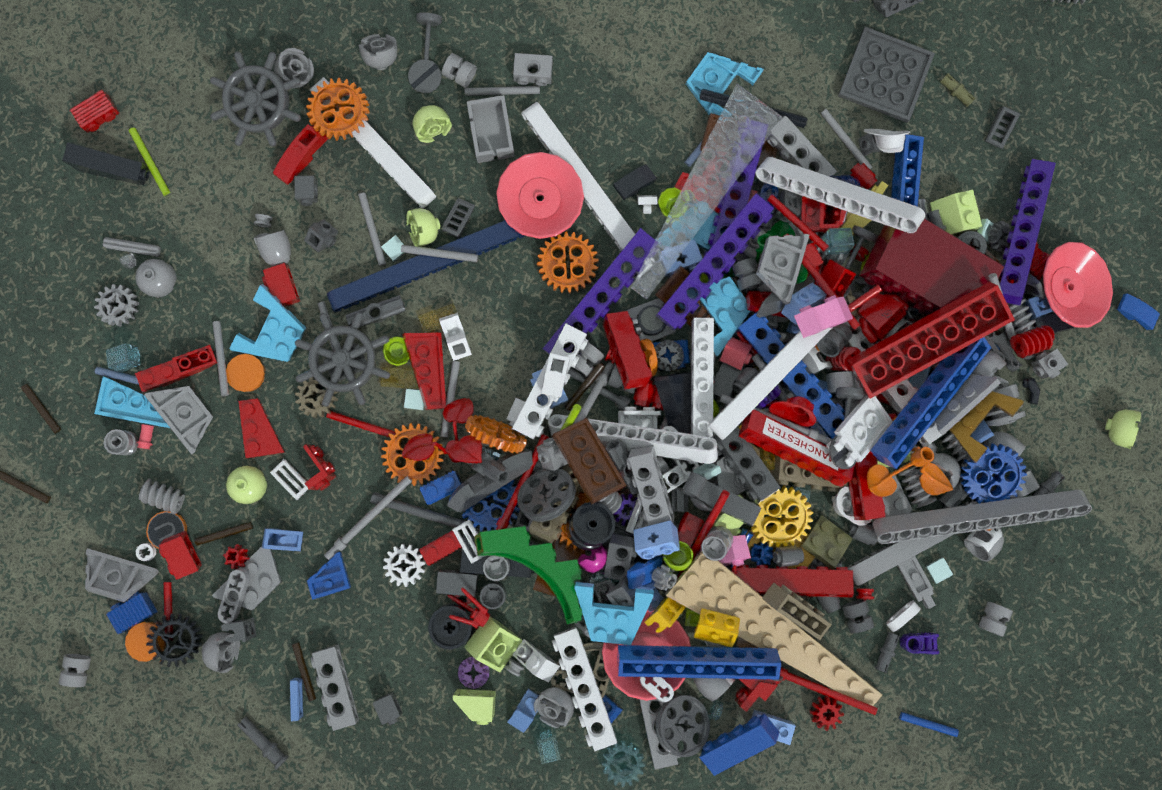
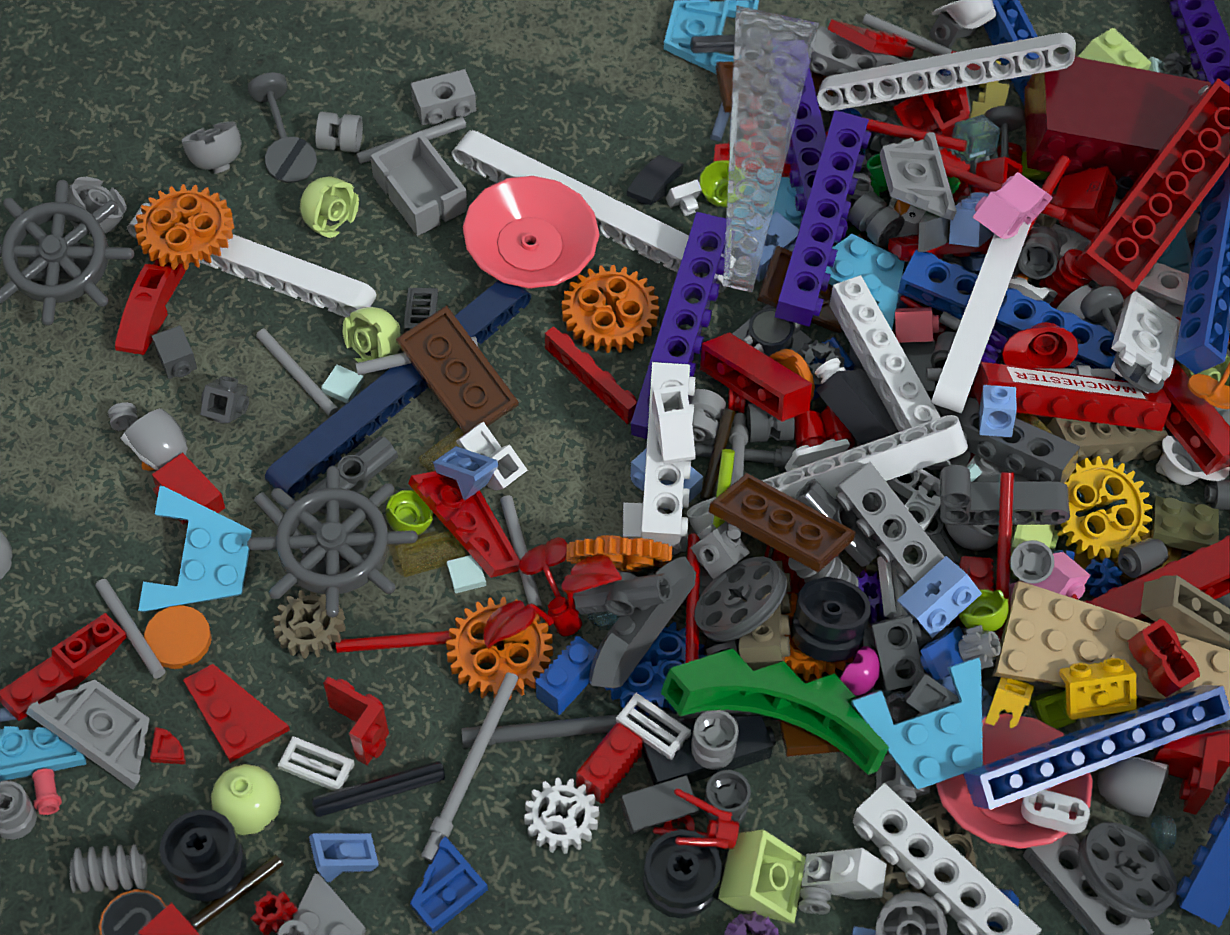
camera: 20 degrees left, 25 degrees down
(210, 511) = (203, 855): none -> black wheel
(217, 436) = (166, 748): none -> red tile
(315, 507) = (378, 788): none -> black axle
(434, 341) = (468, 468): none -> medium blue slope
(457, 274) = (457, 371): none -> reddish brown tile
(535, 295) = (585, 369): none -> red plate
(667, 370) = (827, 369): none -> white bush
(743, 447) = (997, 411): none -> light blue brick
(759, 631) = (1166, 662): none -> red brick
(814, 139) = (874, 41): none -> red wing

